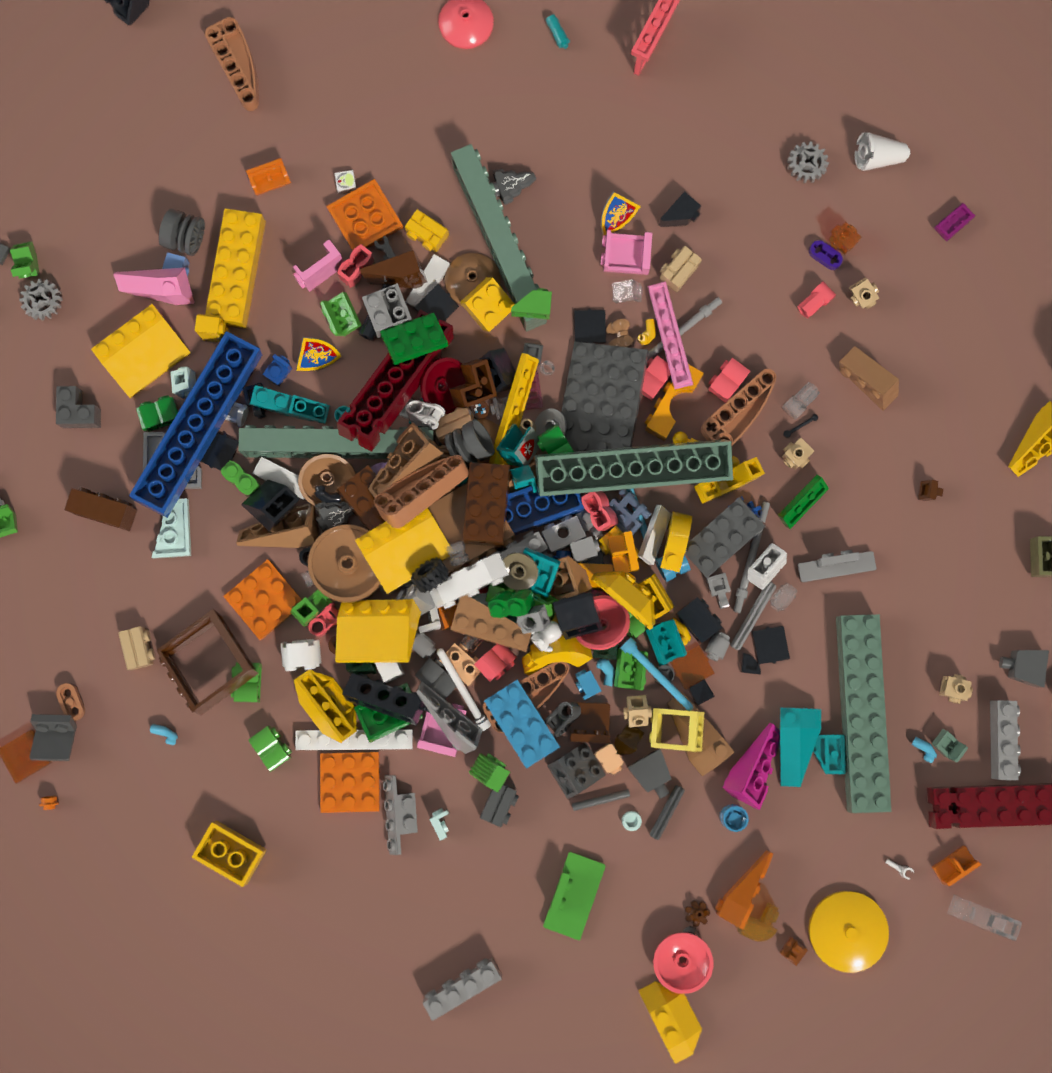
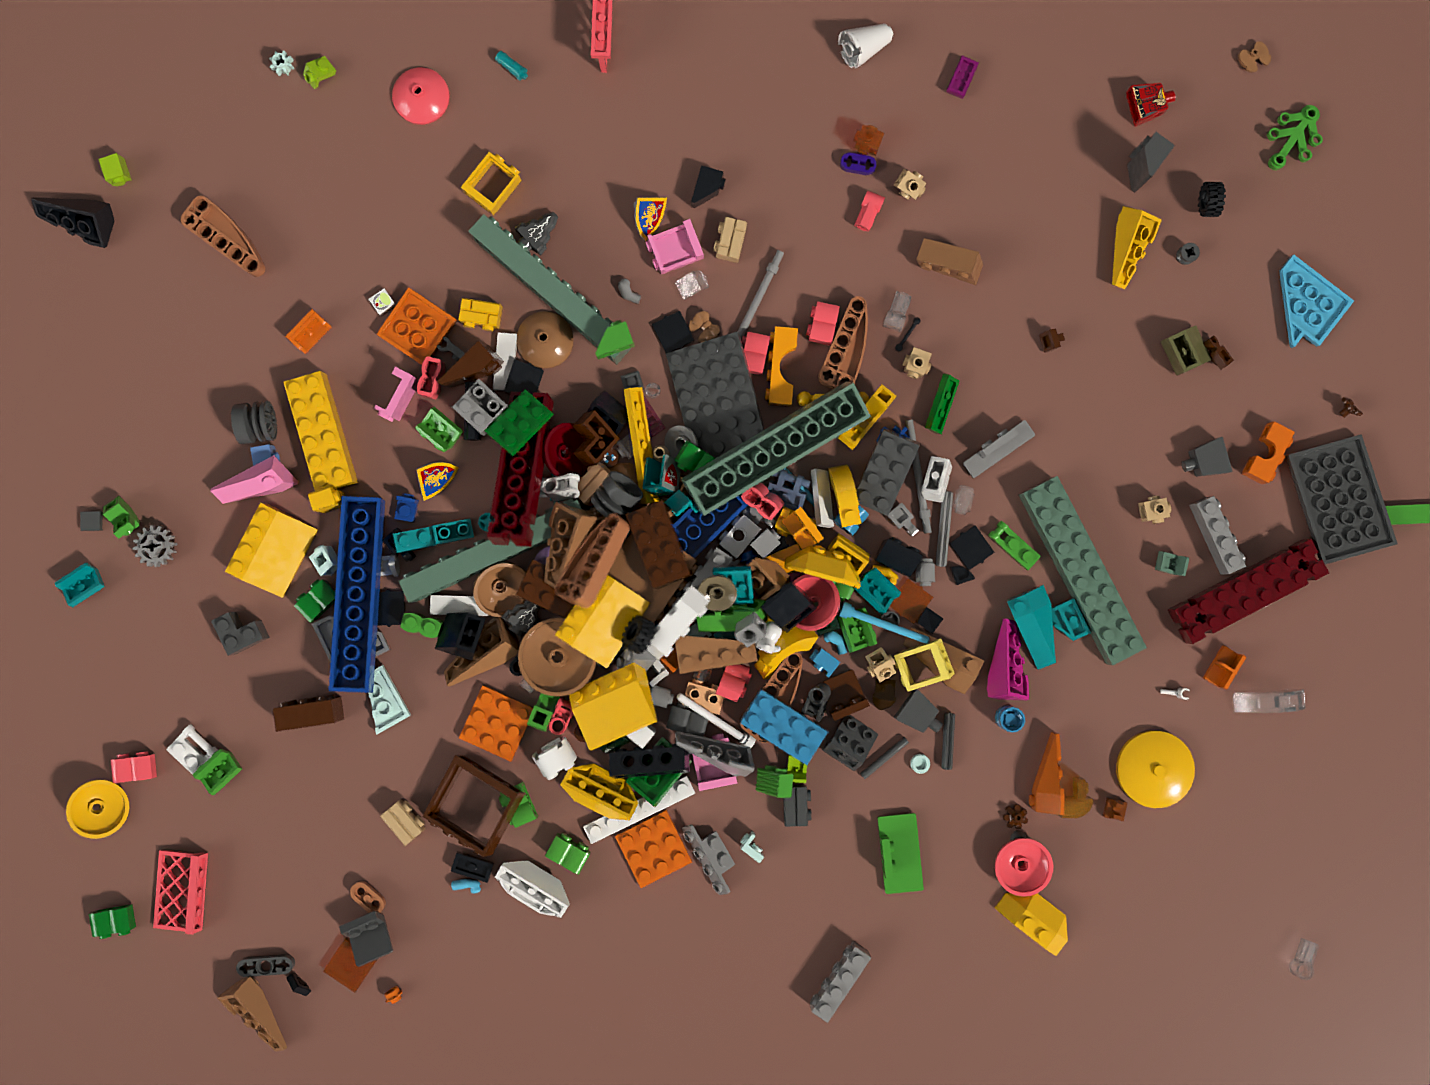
camera: 30 degrees left, 5 degrees up
(178, 719) = (472, 867): none -> black plate
(223, 764) = (533, 887): none -> white wedge
(229, 853) = (577, 963): yellow brick -> none
(325, 496) = (507, 605): black arm -> none
(457, 553) = (654, 602): clear wheel -> none
(470, 116) = (478, 173): none -> yellow window
(487, 304) = (570, 357): yellow brick -> none
(511, 603) = (724, 625): green brick -> none
(517, 771) = (797, 768): none -> lime bracket
(564, 272) = (626, 293): none -> light grey arm
(609, 759) = (875, 720): light nougat brick -> none
(650, 333) = (731, 313): yellow arm -> none
(670, 335) = (751, 307): bright pink tile -> none
(811, 155) = (796, 79): light grey gear -> none
(811, 661) = (1014, 546): none -> bright green plate
(926, 747) = (1151, 574): medium azure arm -> none

